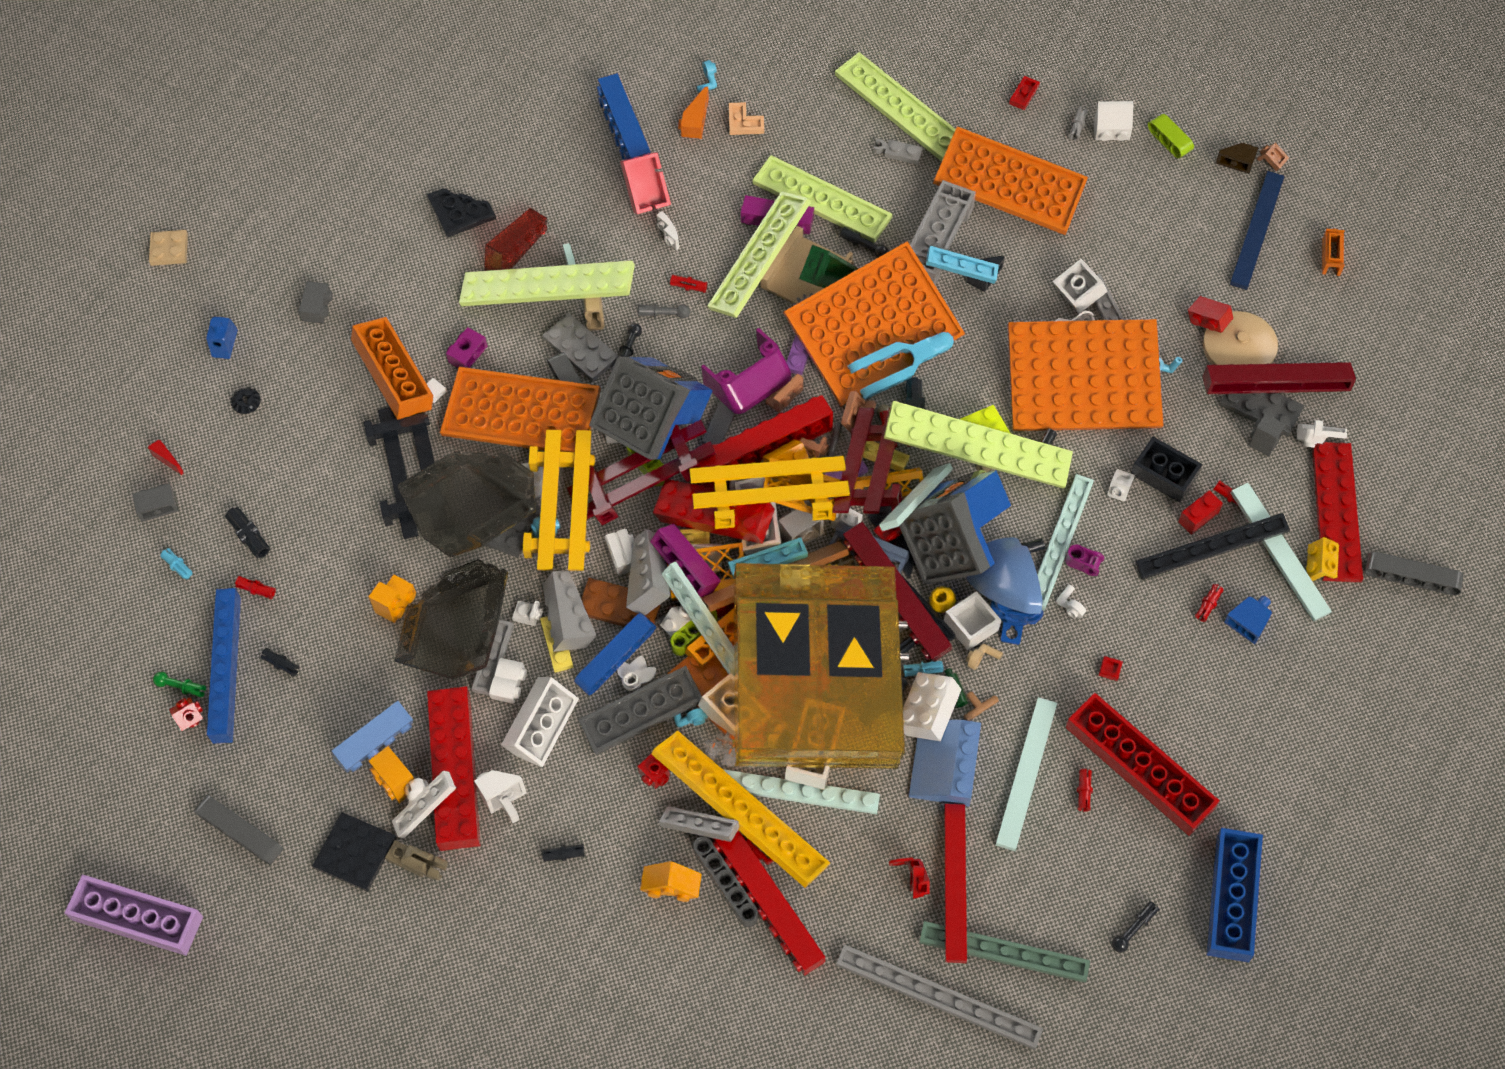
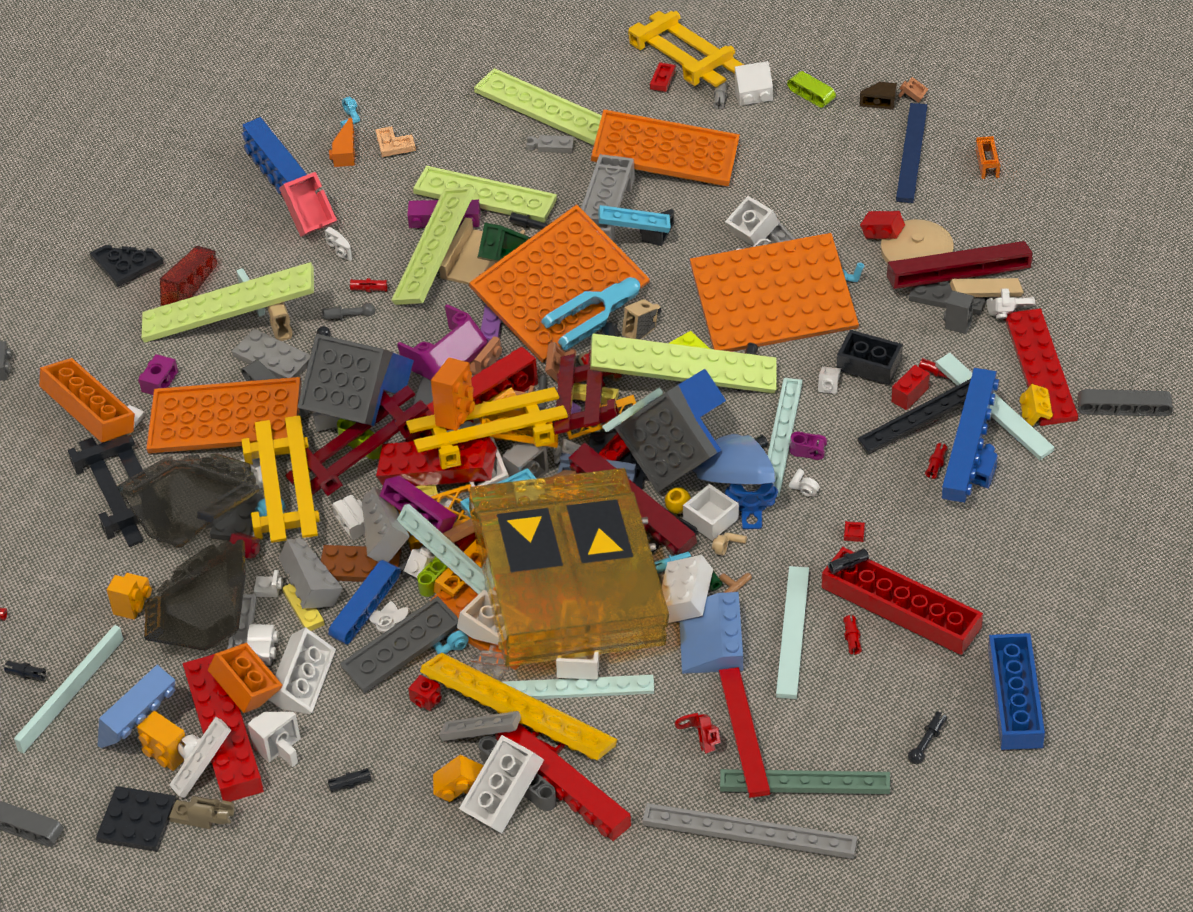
camera: 10 degrees left, 15 degrees down
(316, 692) = (68, 689): none -> light aqua tile
(481, 725) = (244, 677): none -> orange slope
(513, 563) = (252, 544): none -> dark red brick
(705, 899) = (501, 784): none -> white slope
(738, 455) = (452, 394): none -> orange brick
(946, 379) = (639, 319): none -> tan torso
(1058, 90) = (691, 67): none -> yellow fence
(1097, 713) = (848, 561): none -> black pin
(1248, 588) = (969, 435): none -> blue brick
(1300, 409) = (987, 287): none -> tan tile

